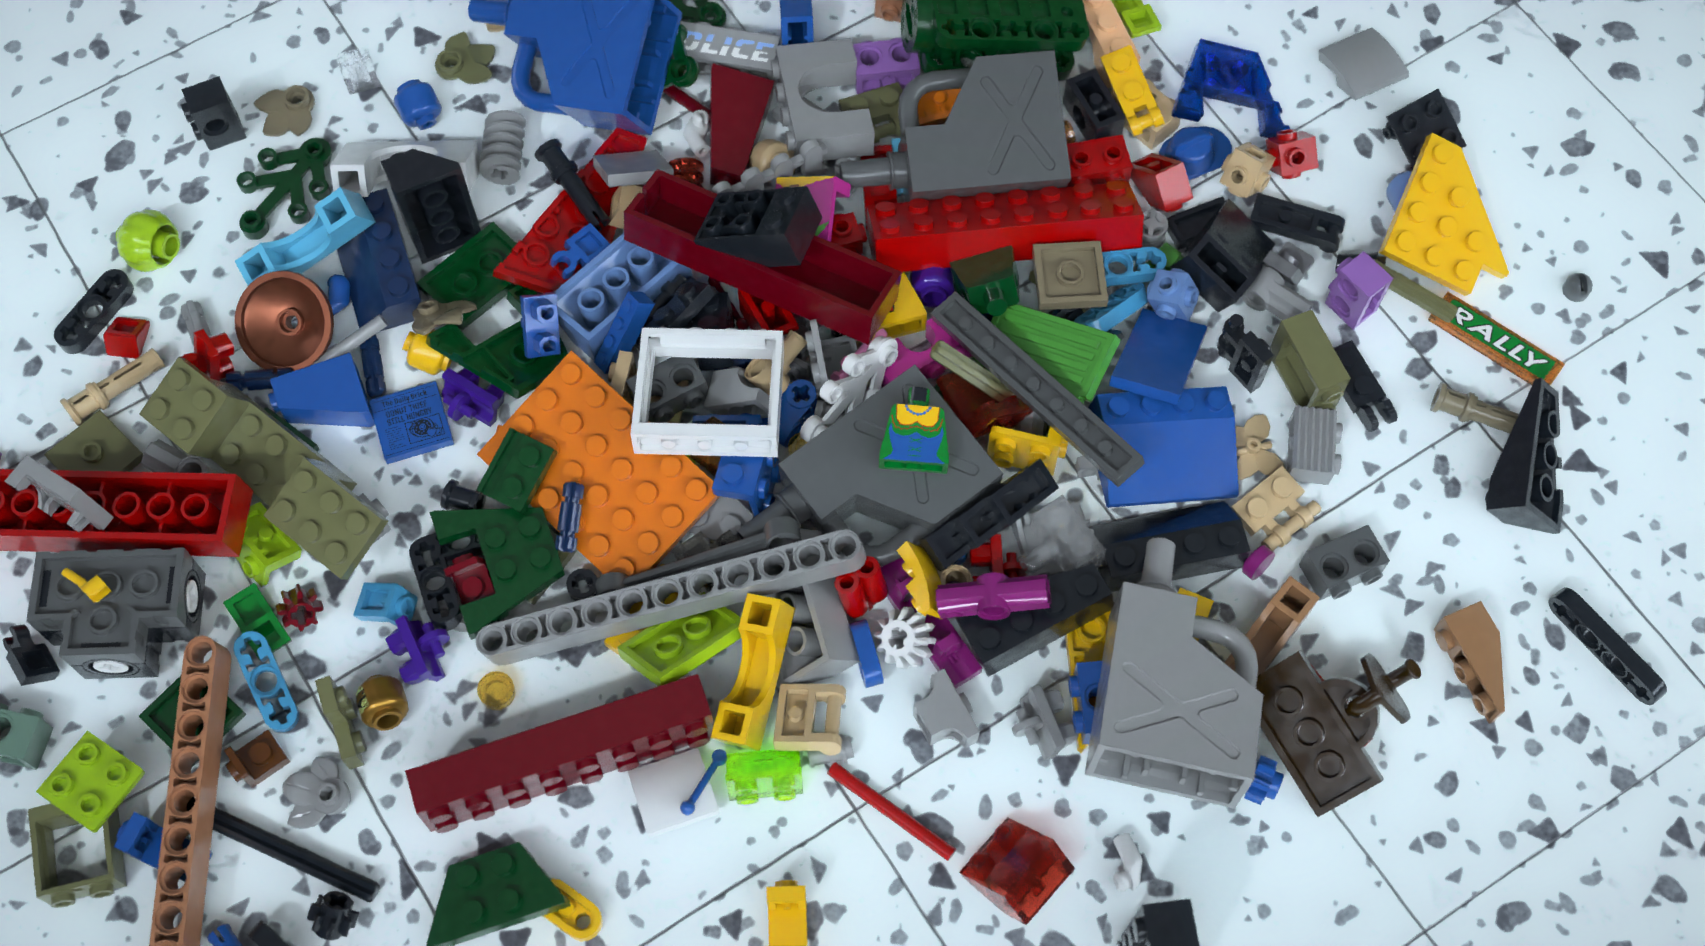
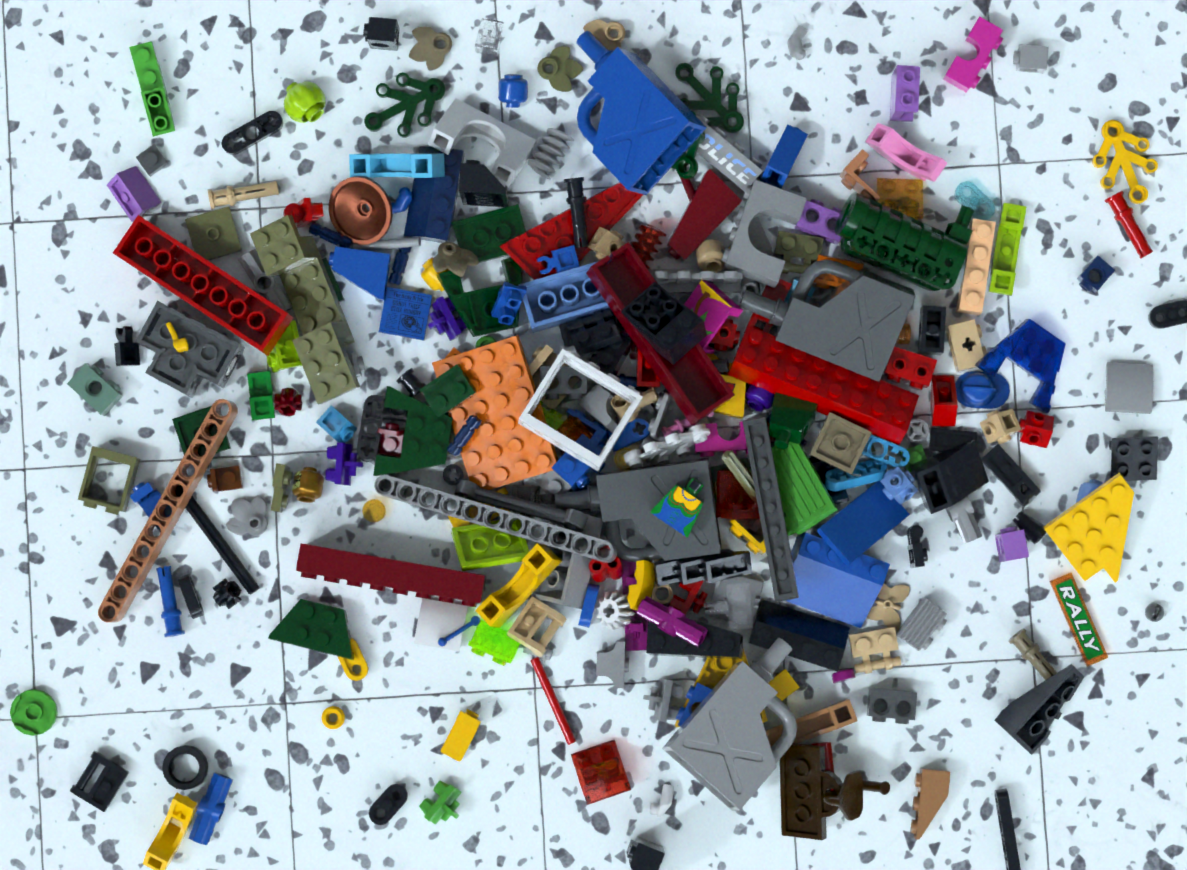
camera: 30 degrees right, 20 degrees up
(57, 491) = (181, 267): light grey piece -> none
(91, 782) = (131, 449): lime bracket -> none
(126, 337) = (264, 160): red slope -> none
(196, 320) = (308, 179): light grey axle -> none
(246, 661) = (242, 443): dark azure beam -> none
(624, 329) = (556, 331): blue piece -> none
(630, 167) = (619, 220): light grey tile -> none
(695, 132) = (676, 203): white arm -> none
(1131, 89) = (959, 335): yellow plate -> none
(1266, 781) = (763, 799): blue gear -> none
(1290, 262) = (984, 502): flat silver bracket -> none
(1308, 362) = (948, 577): olive window -> none
(1364, 389) = (976, 599): black hinge -> none
(1420, 295) = (1044, 563): olive axle -> none

